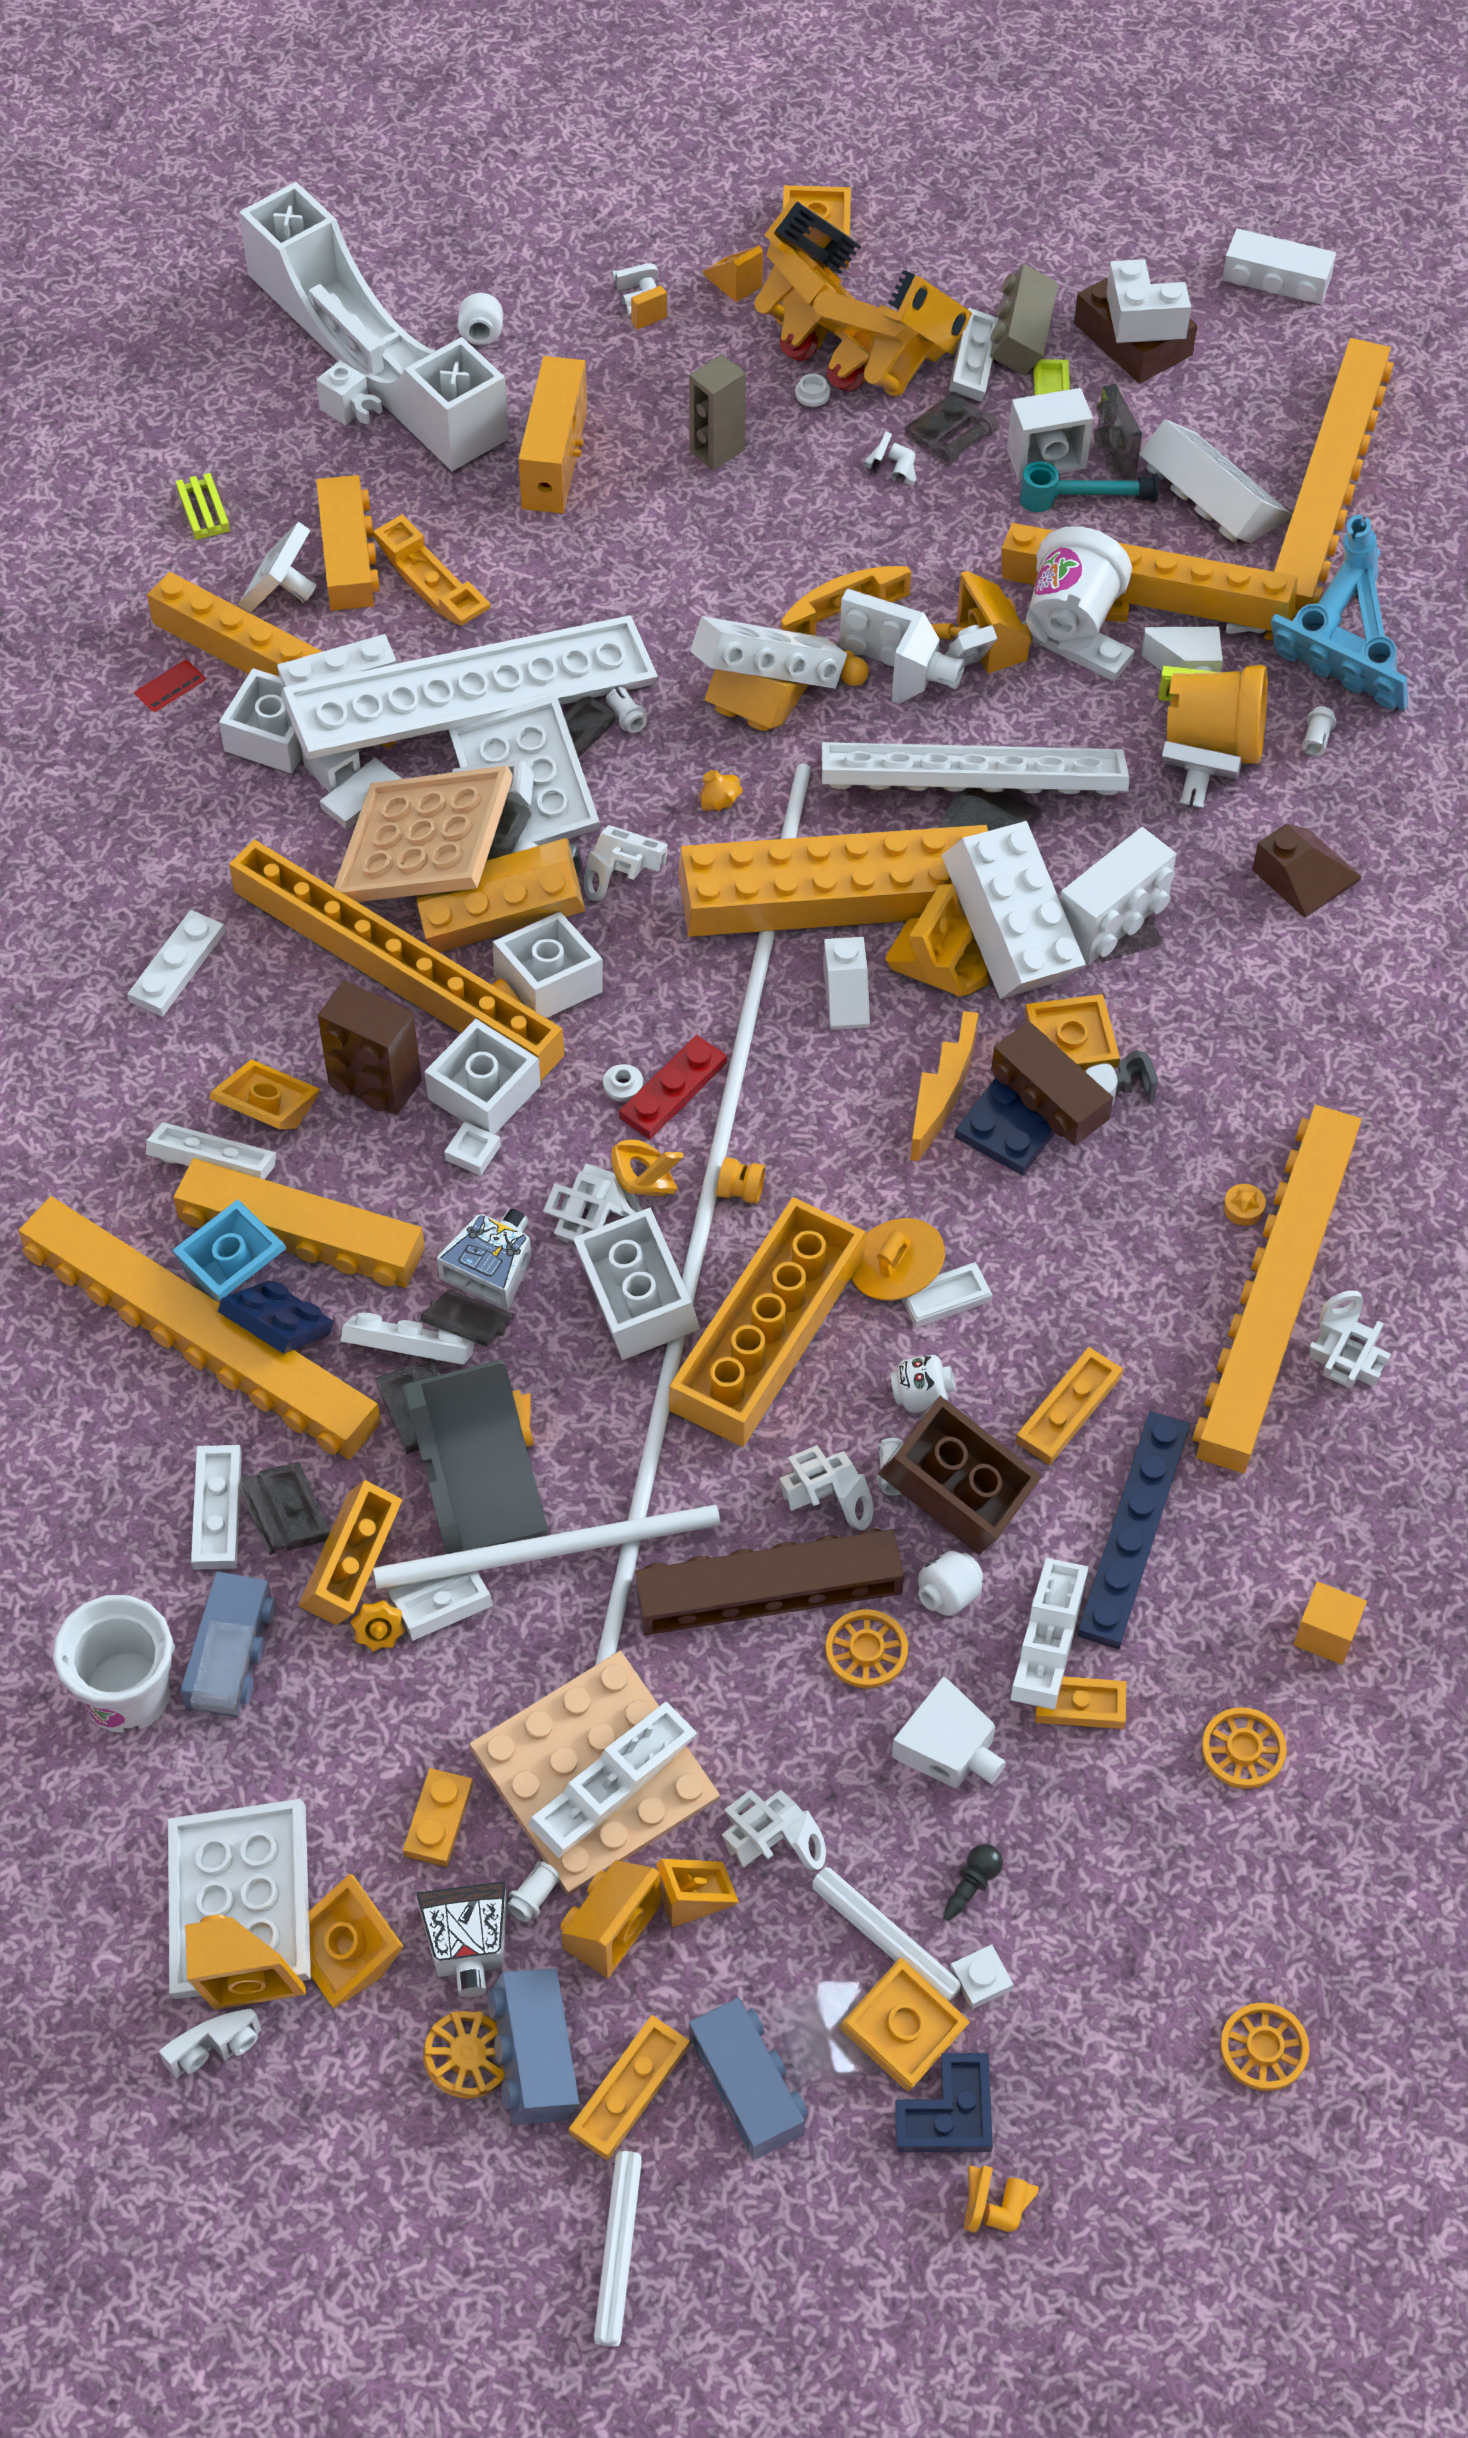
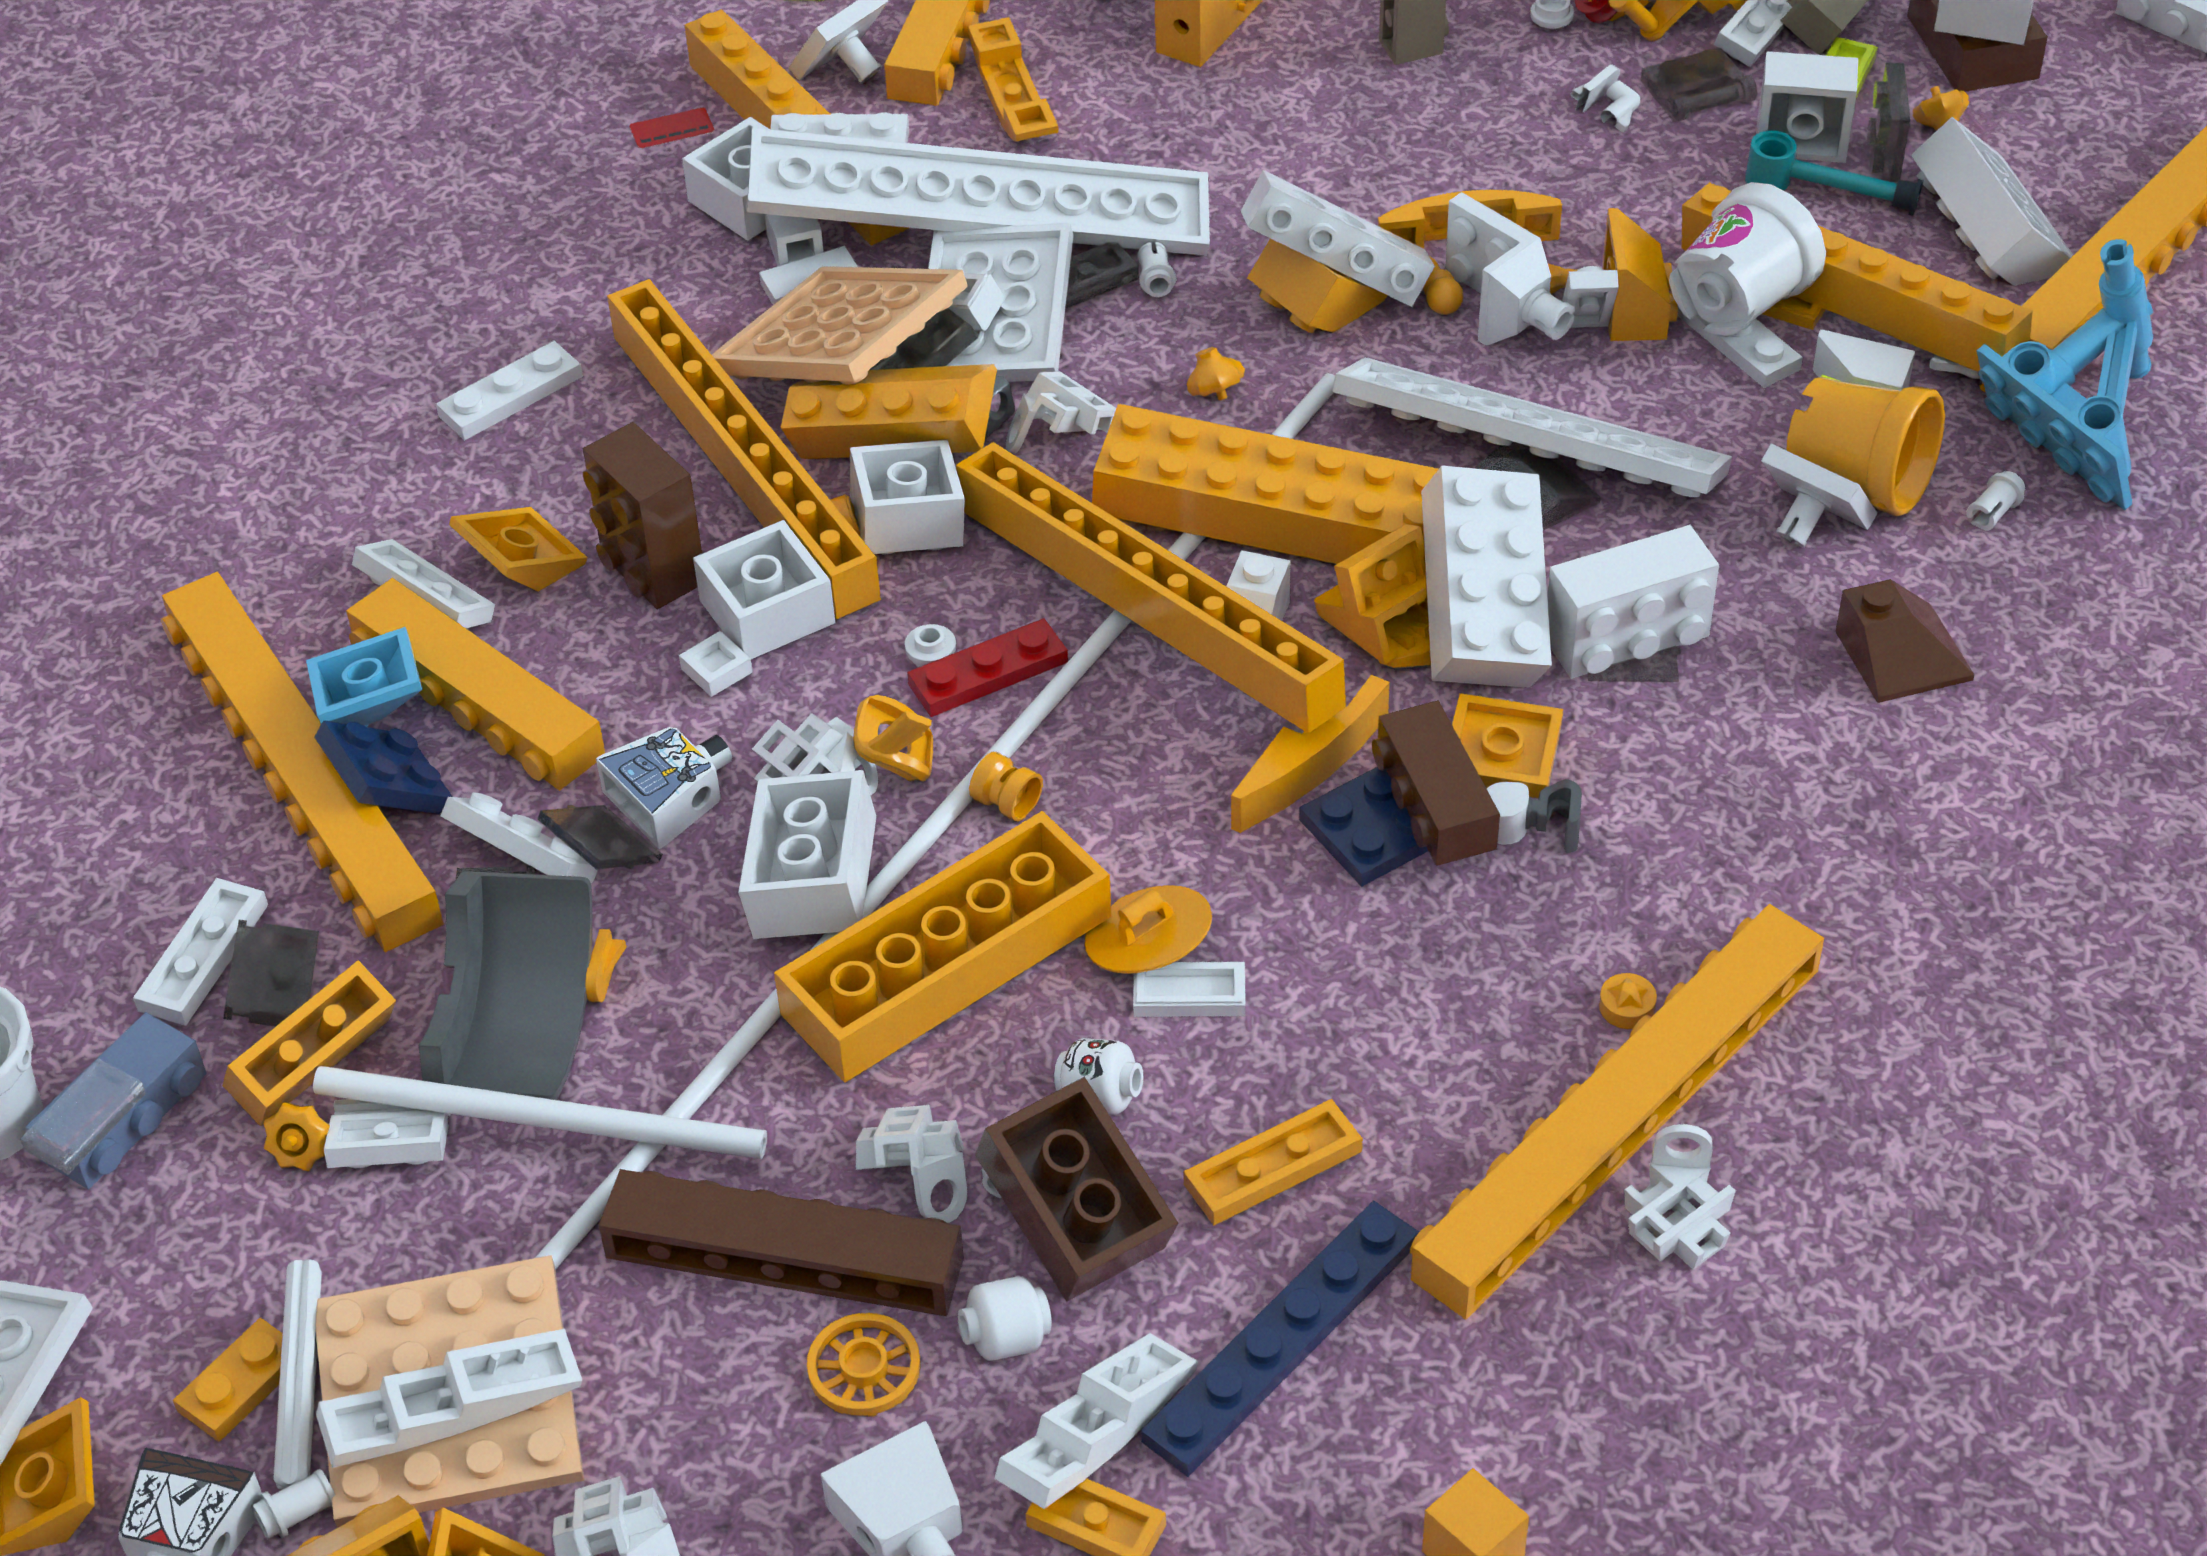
camera: 25 degrees right, 10 degrees down
(485, 1799) = (297, 1374): none -> white axle
(775, 989) = (1154, 588): none -> light orange brick
(1144, 405) = (1941, 107): none -> light orange piece

